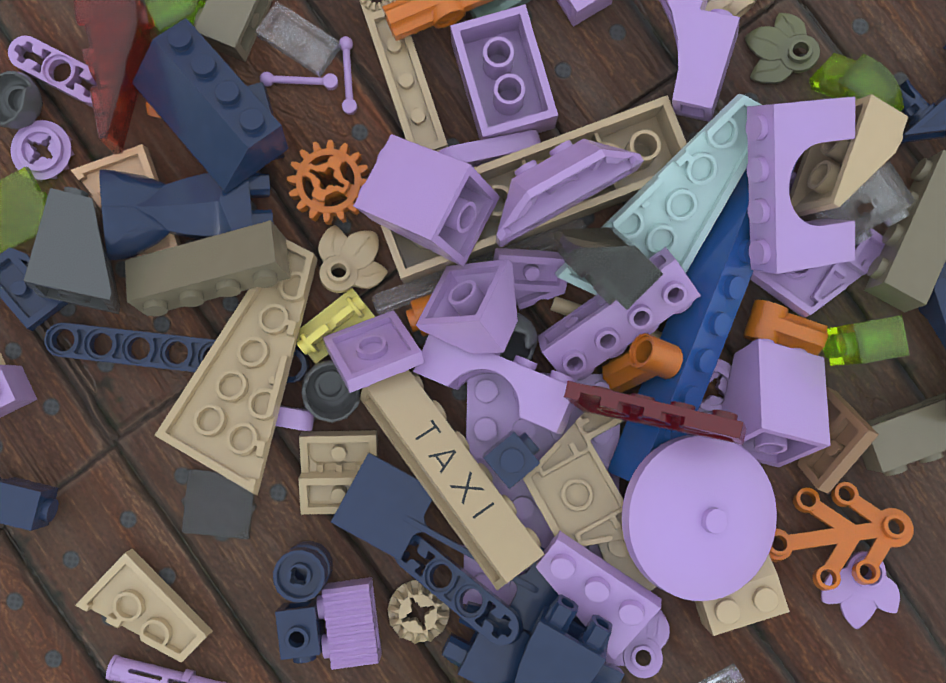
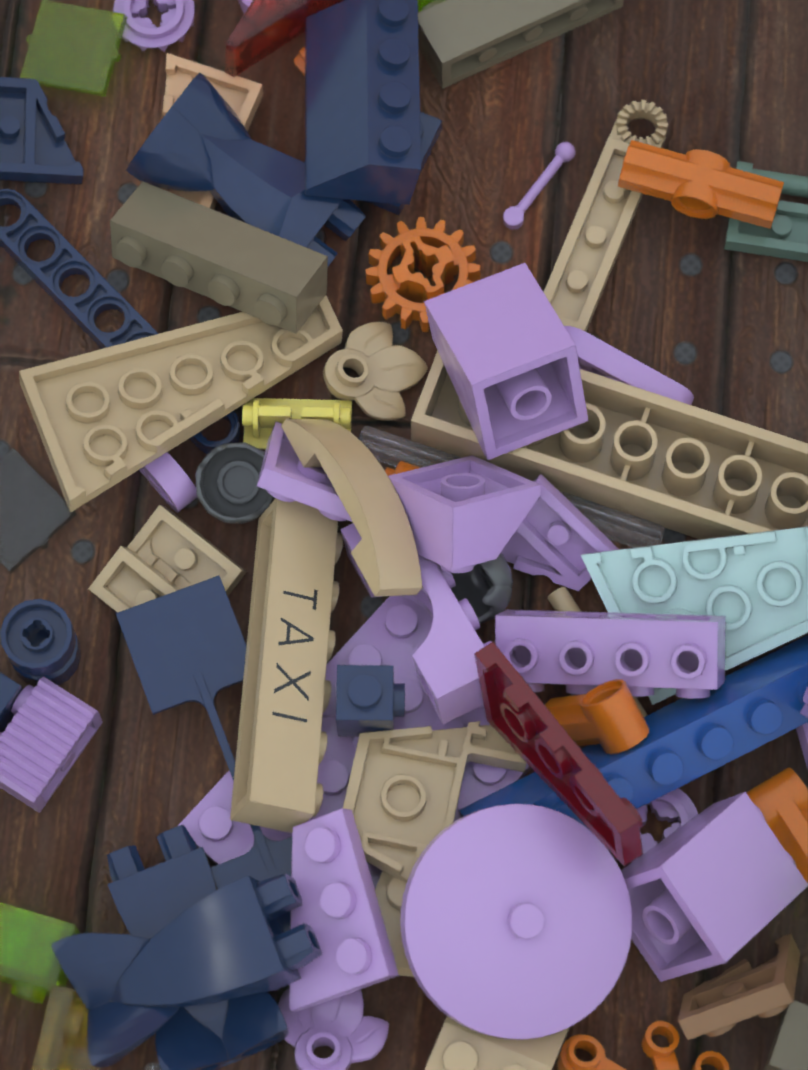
camera: 40 degrees right, 15 degrees down
(71, 254) = (94, 133): dark grey slope -> none
(298, 39) = (518, 108): clear plate -> none
(329, 80) = (514, 175): lavender hinge -> none
(411, 629) = (133, 819): tan gear -> none
(417, 346) = (387, 546): none -> tan slope
(455, 591) = (187, 795): dark blue beam -> none
(503, 74) = (704, 307): lavender brick -> none
(560, 183) = (659, 454): lavender wedge -> none
(608, 263) = (644, 564): clear smoke slope -> none

